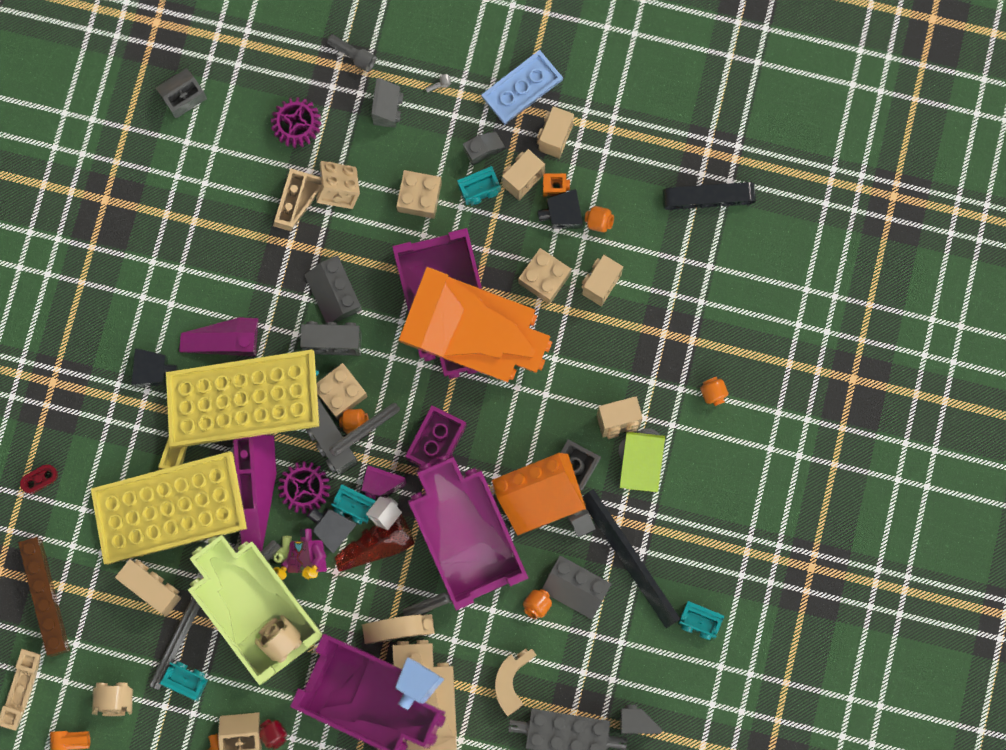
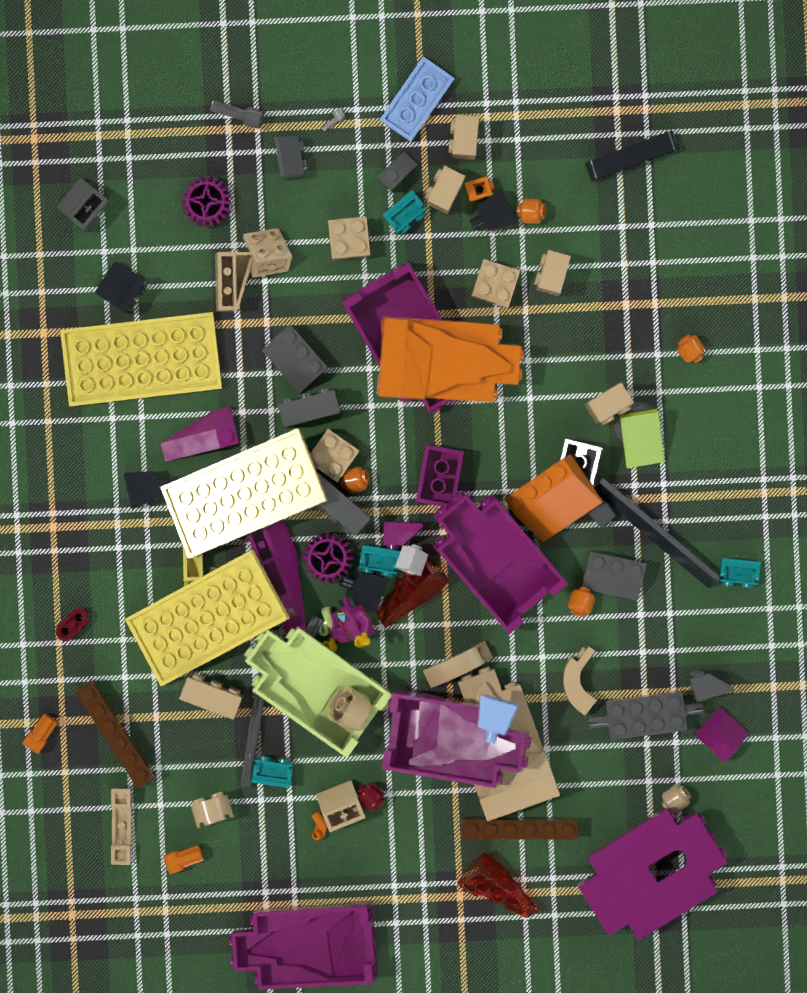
camera: 20 degrees left, 10 degrees up
(188, 249) = (141, 359): none -> light yellow plate
(191, 178) = (121, 287): none -> black bracket
(364, 429) = (369, 487): dark grey axle -> none
(427, 605) = (478, 635): dark grey axle -> none

